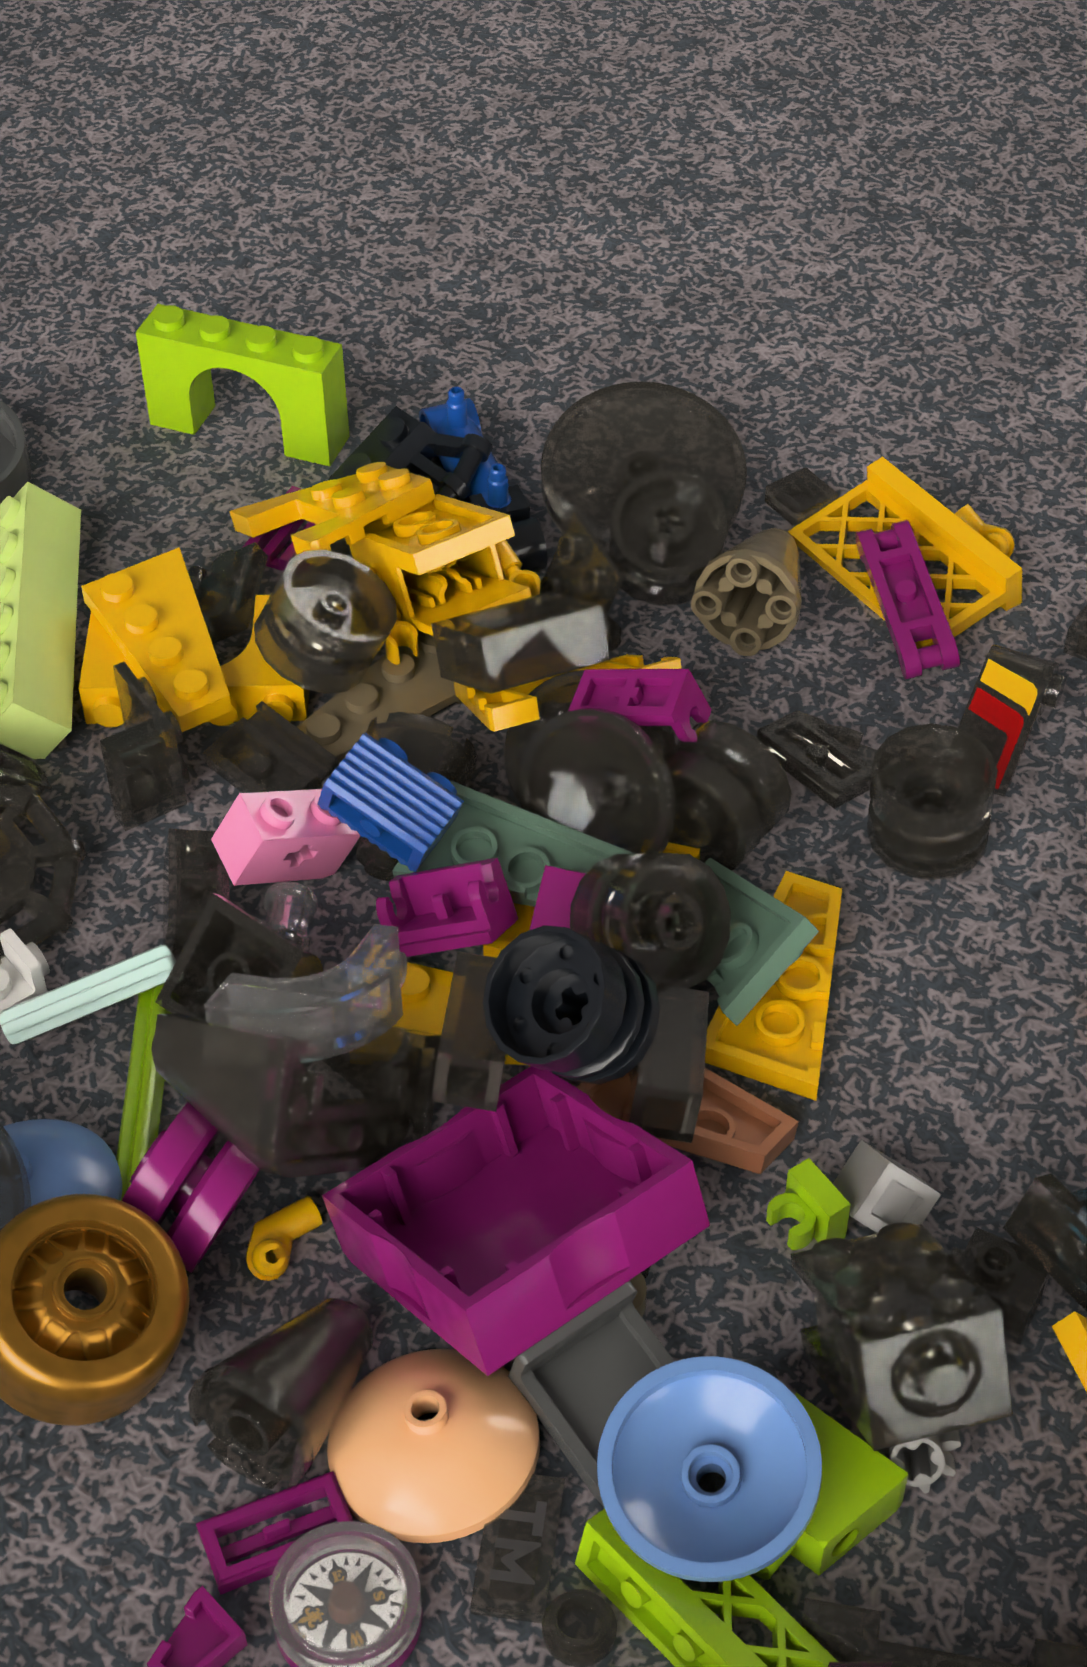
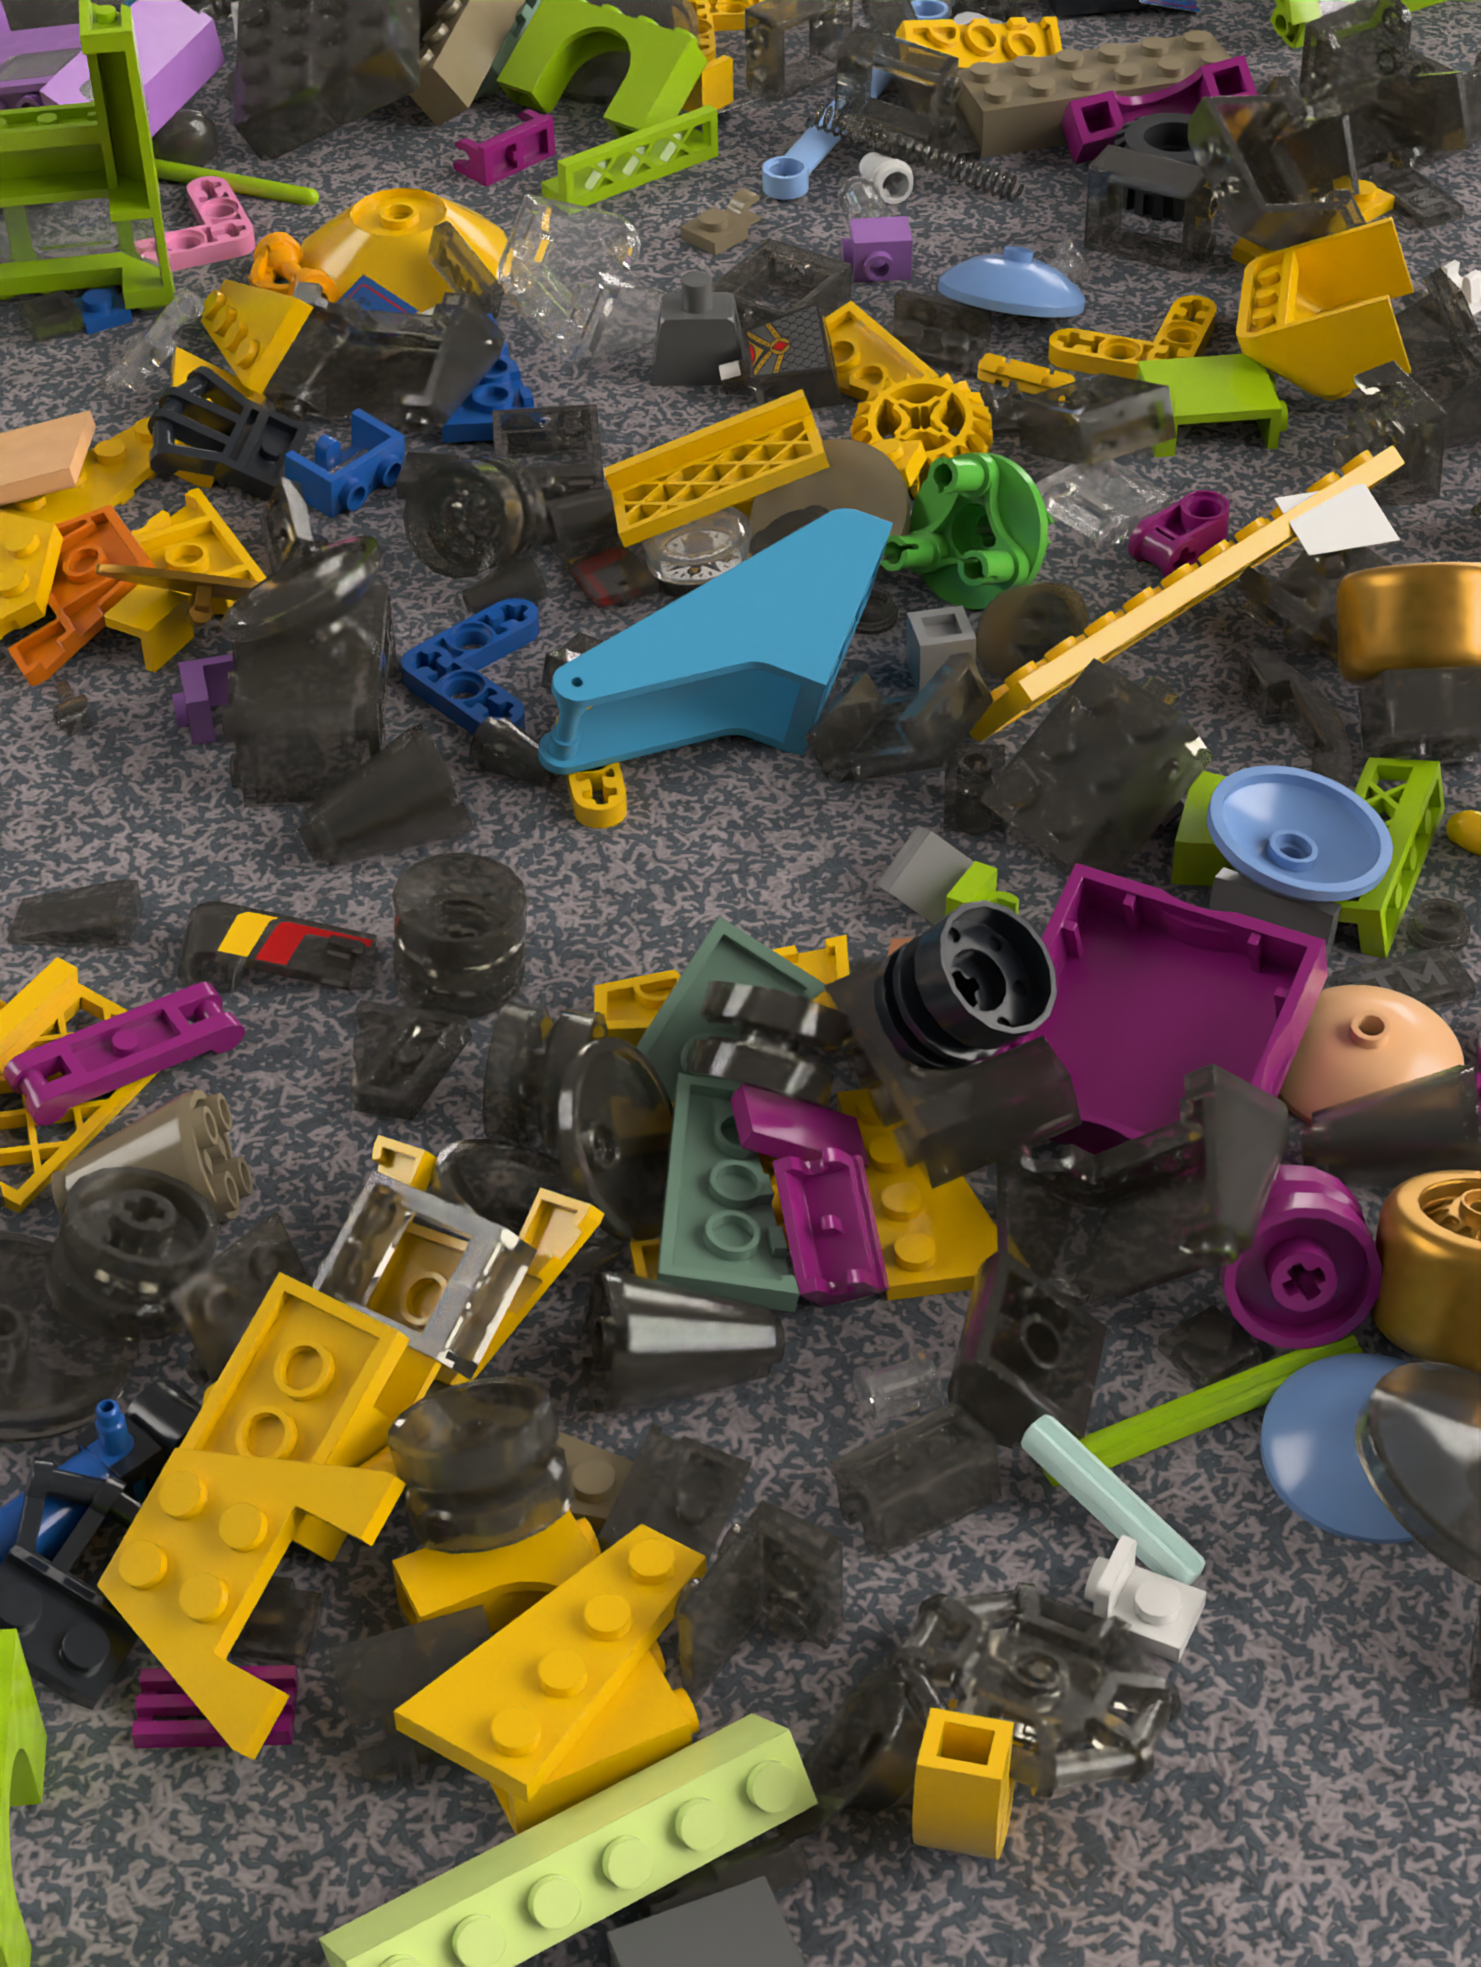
camera: 115 degrees left, 5 degrees down
(281, 838) = (812, 1395): bright pink brick -> none
(330, 1008) = (1042, 1214): clear arch -> none
(391, 800) = (748, 1268): blue brick -> none
(646, 697) = (515, 1099): magenta hinge -> none

